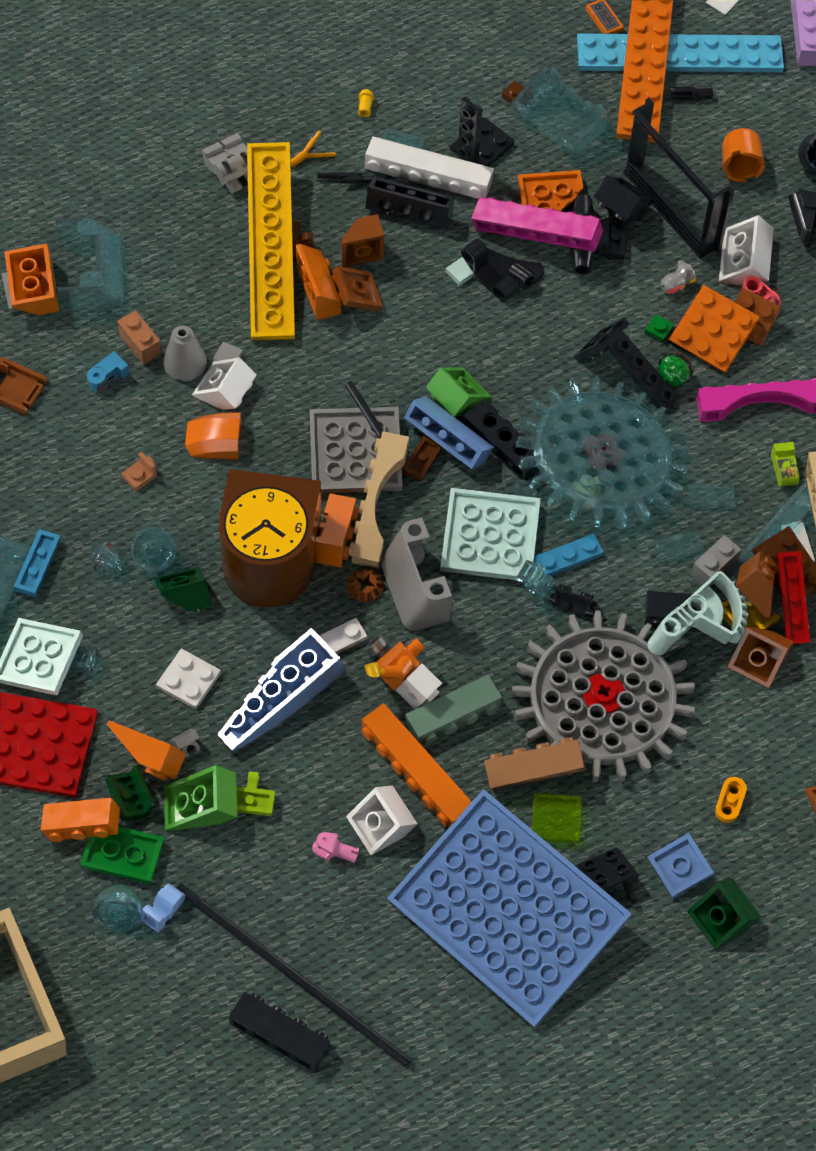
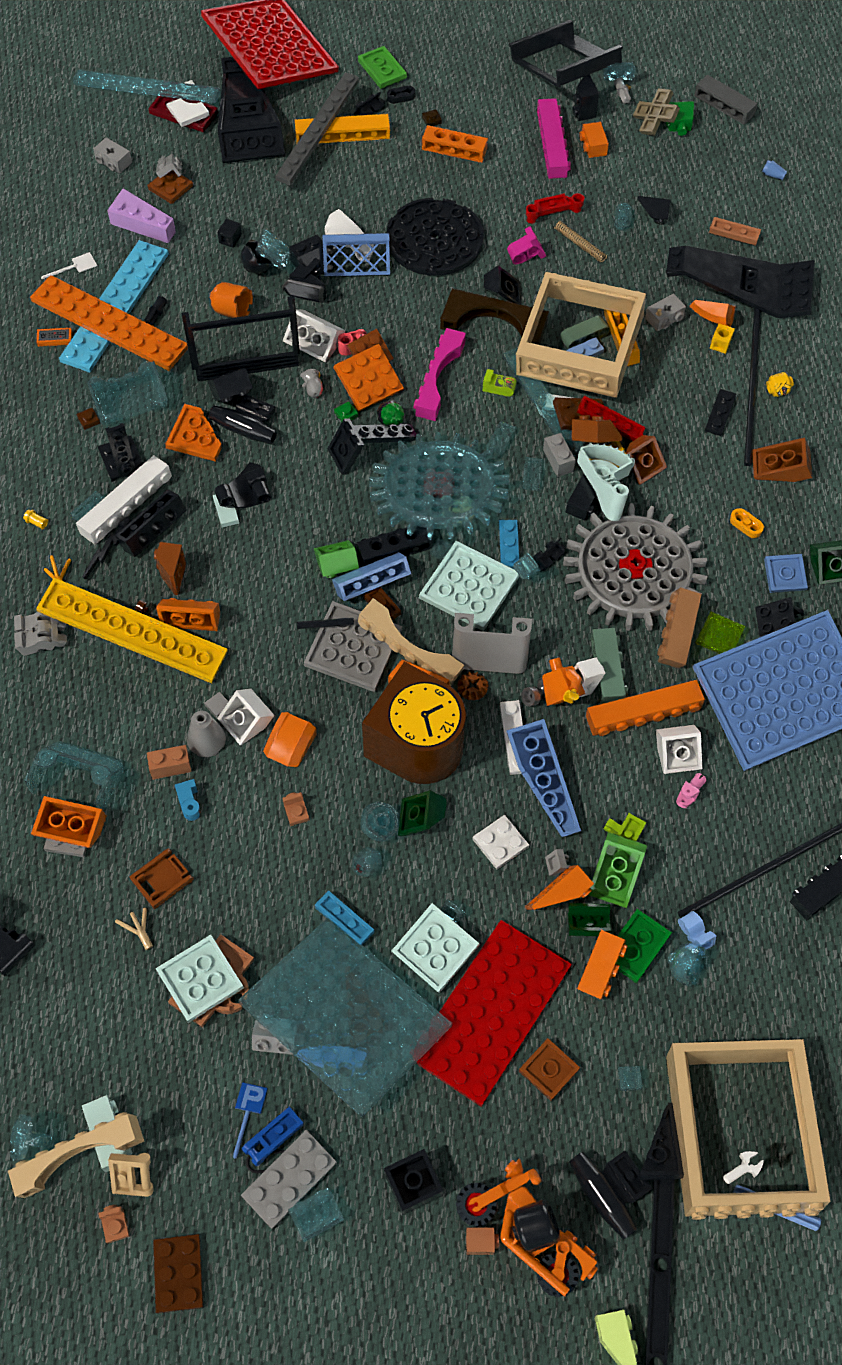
camera: 65 degrees left, 0 degrees up
(357, 288) = (210, 588): dark orange plate -> none
(537, 224) = (221, 445): dark pink brick -> none

